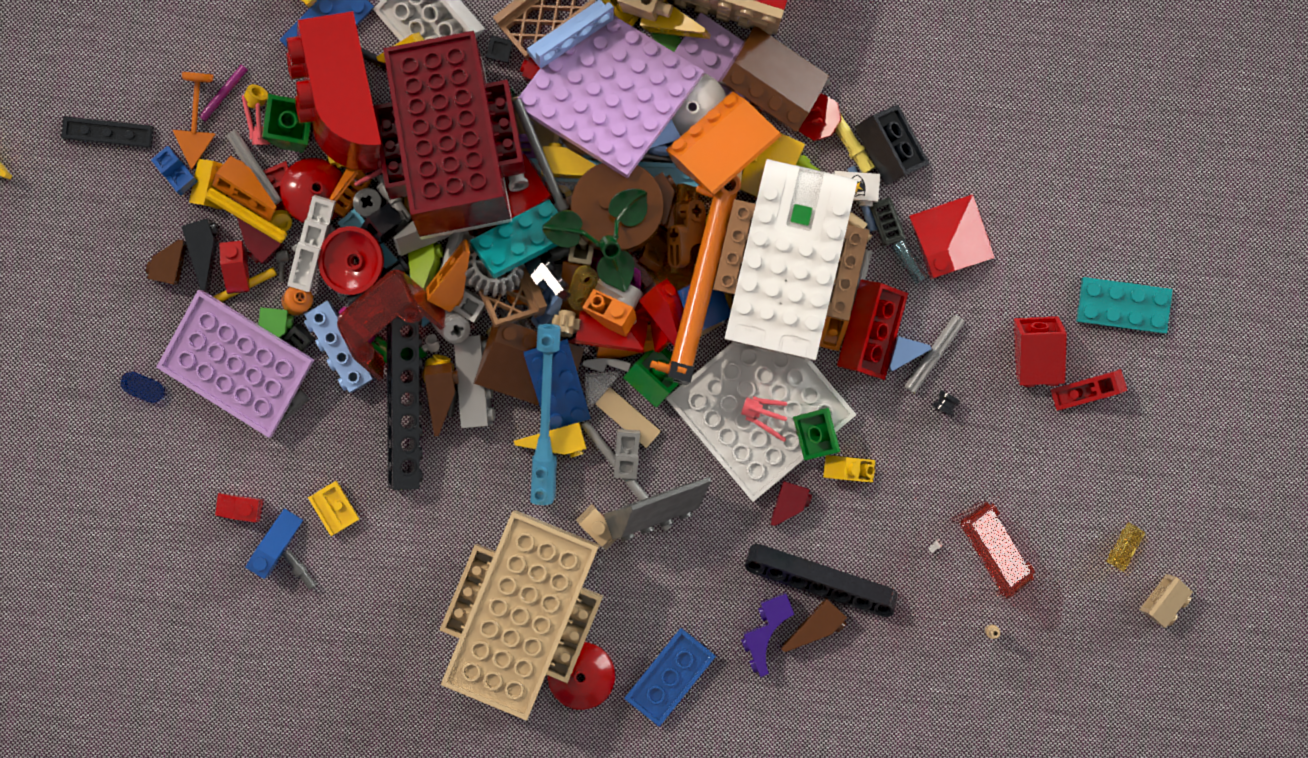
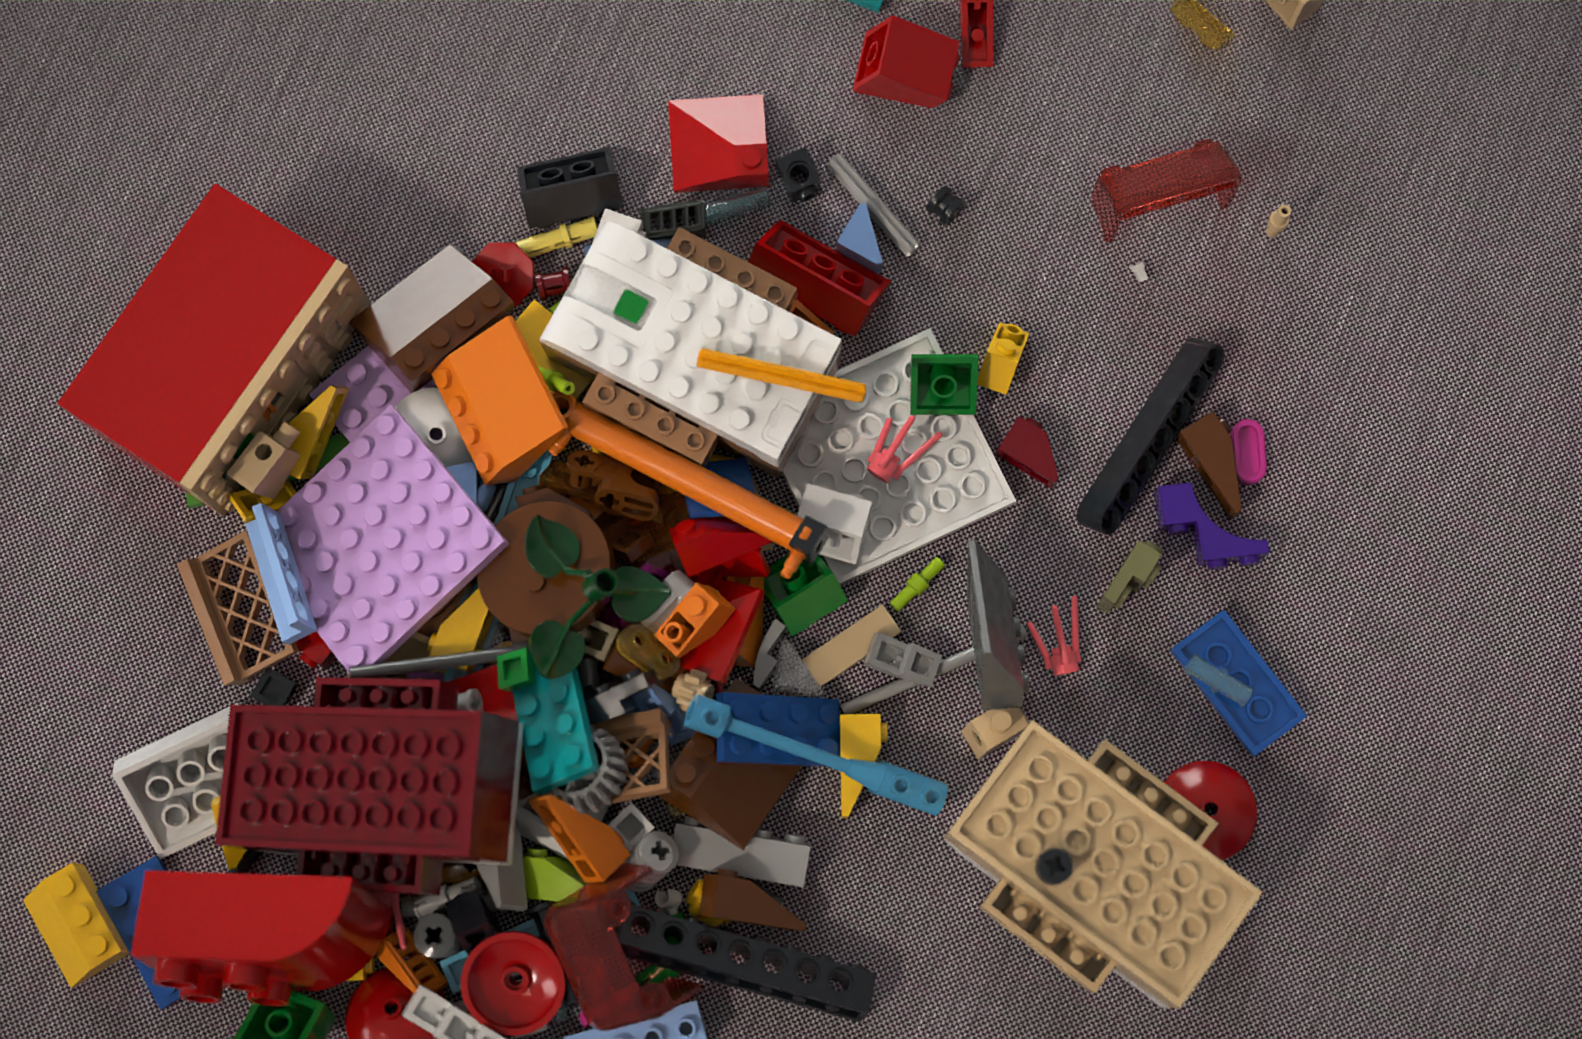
camera: 75 degrees left, 10 degrees down
(507, 580) = (1050, 871): none -> black wheel
(546, 206) = (515, 670): none -> green tile
(656, 559) = (1063, 659): none -> coral plant
(666, 663) = (1219, 680): none -> clear light blue pin
(680, 450) = (917, 584): none -> lime bar
(704, 386) = (844, 517): none -> white brick
(725, 592) = (1137, 571): none -> olive plate
(746, 176) = (556, 381): none -> lime bar
(779, 327) = (781, 375): none -> light orange axle
(821, 153) = (553, 283): none -> dark red bush
(828, 648) = (1249, 451): none -> dark pink tile
(949, 294) = (794, 163): none -> black brick

